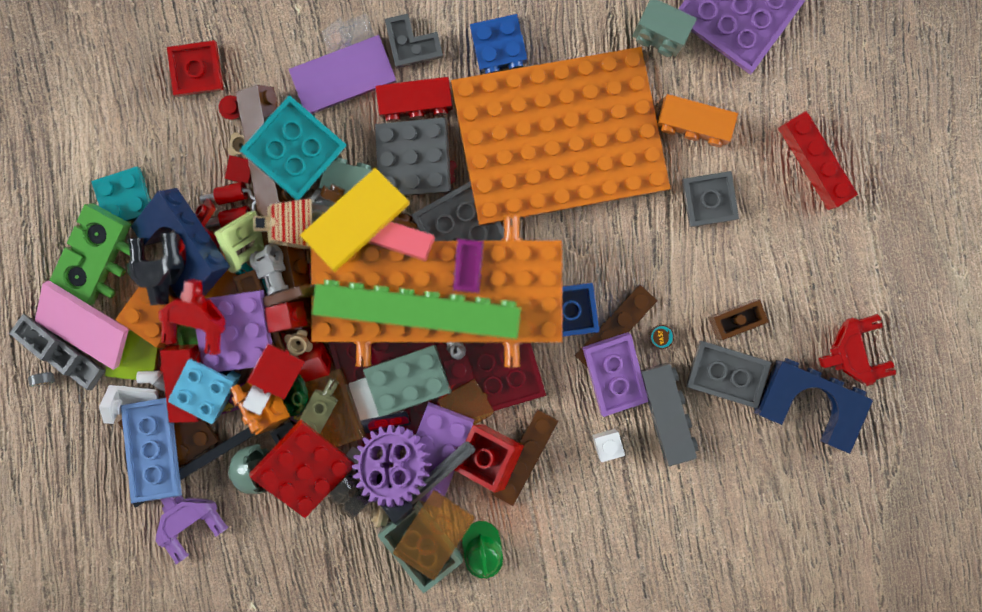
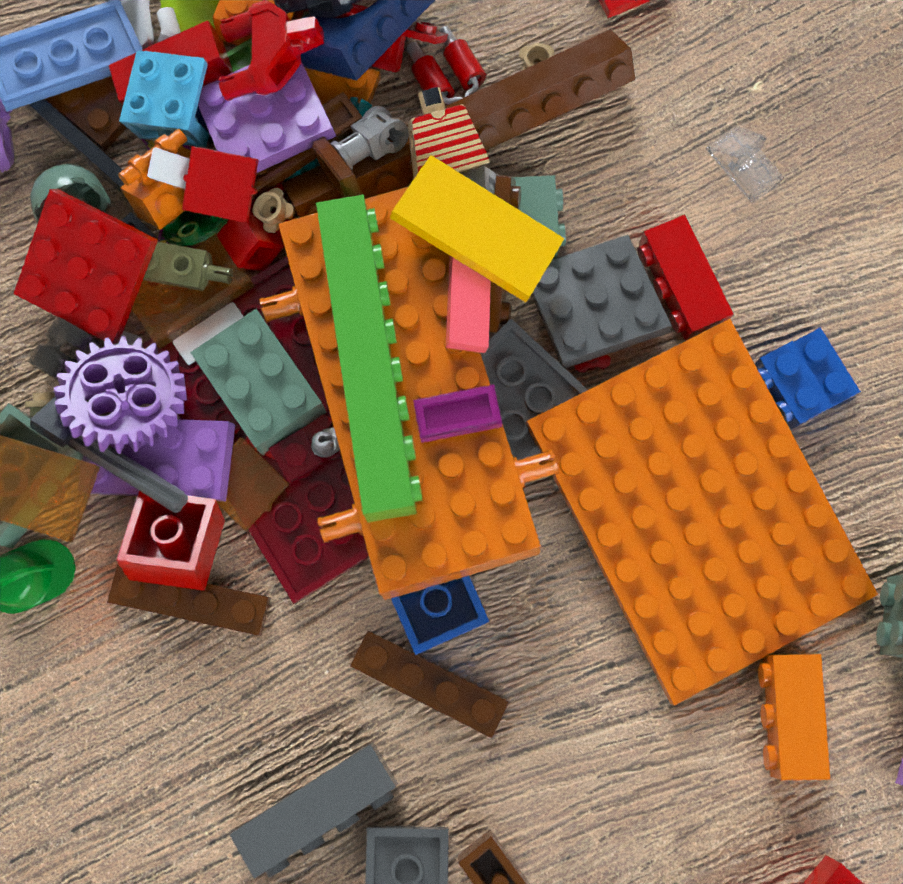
camera: 75 degrees right, 10 degrees down
(229, 107) = (584, 29): red plate -> none
(237, 235) = (402, 77): yellowish green plate -> none
(238, 170) = (500, 65): red tile -> none
(285, 316) = (305, 176): red brick -> none
(293, 148) = (556, 120): teal plate -> none
(342, 75) = (683, 170): medium lavender tile -> none
(395, 419) = (195, 383): sticker -> none
(409, 49) = (754, 250): dark grey plate -> none
(608, 445) = (239, 725): white brick -> none
(615, 374) = (355, 703): medium lavender plate -> none
(661, 336) = (436, 762): reddish brown tile -> none
(710, 199) = (678, 776): dark grey plate -> none

